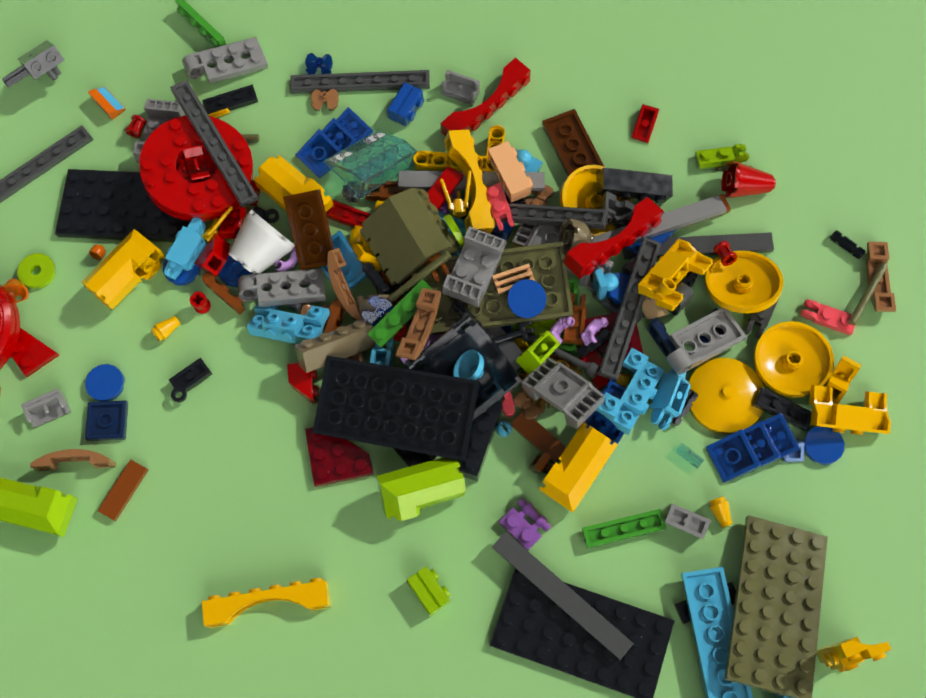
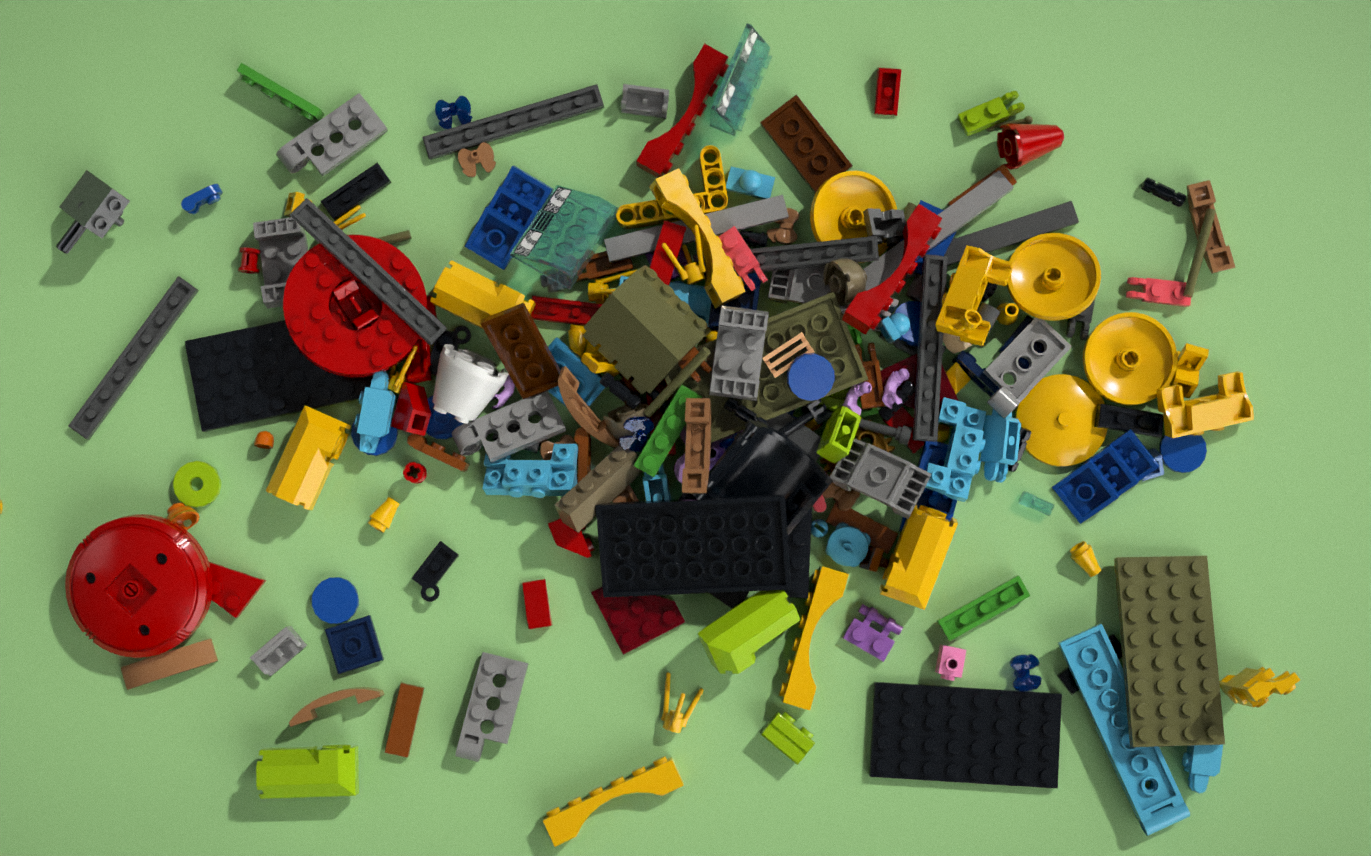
camera: 25 degrees left, 15 degrees up
(107, 102) = (198, 234): orange slope -> none
(118, 77) = (206, 195): none -> blue plate
(169, 518) = (471, 736): none -> light grey hinge
(259, 428) = (537, 604): none -> red slope
(337, 548) = (674, 719): none -> yellow plant
(405, 104) = (582, 142): blue brick -> none
(455, 230) = (701, 309): lime tile -> none
(467, 364) = (759, 476): medium azure piece -> none
(497, 478) = (800, 685): none -> yellow arch
(510, 171) = (742, 208): light nougat brick -> none
(523, 447) = (848, 545): none -> medium azure piece
(533, 86) = (740, 81): none -> clear light blue slope
(562, 596) = (935, 702): dark grey tile -> none
(584, 565) = (950, 662): none -> bright pink brick
(635, 184) = (896, 185): black brick -> none
(646, 586) = (1023, 679): none -> clear blue piece
(648, 340) = (957, 377): none -> yellow slope
(687, 521) = (1051, 581): light grey hinge -> none
(700, 301) = (1006, 318): none -> yellow cone
(725, 253) = (1024, 246): red bush -> none

